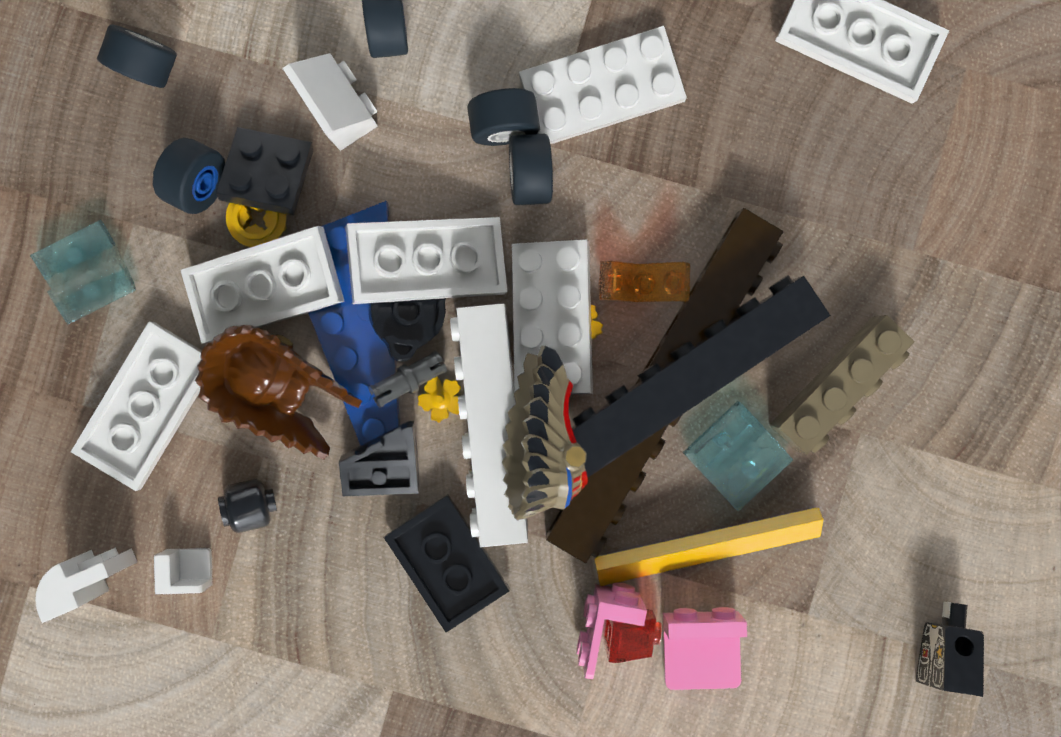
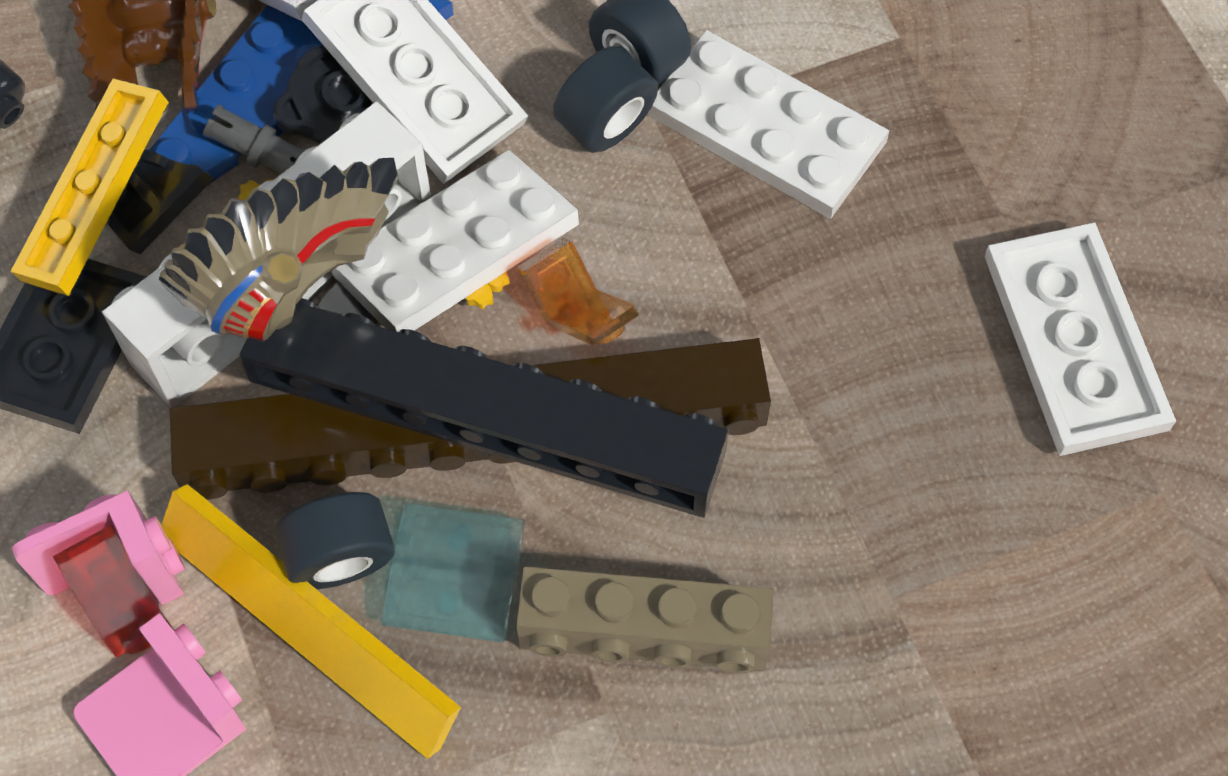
camera: 55 degrees right, 25 degrees down
(374, 493) = (90, 187): none -> yellow plate
(685, 507) = (335, 540): none -> black wheel

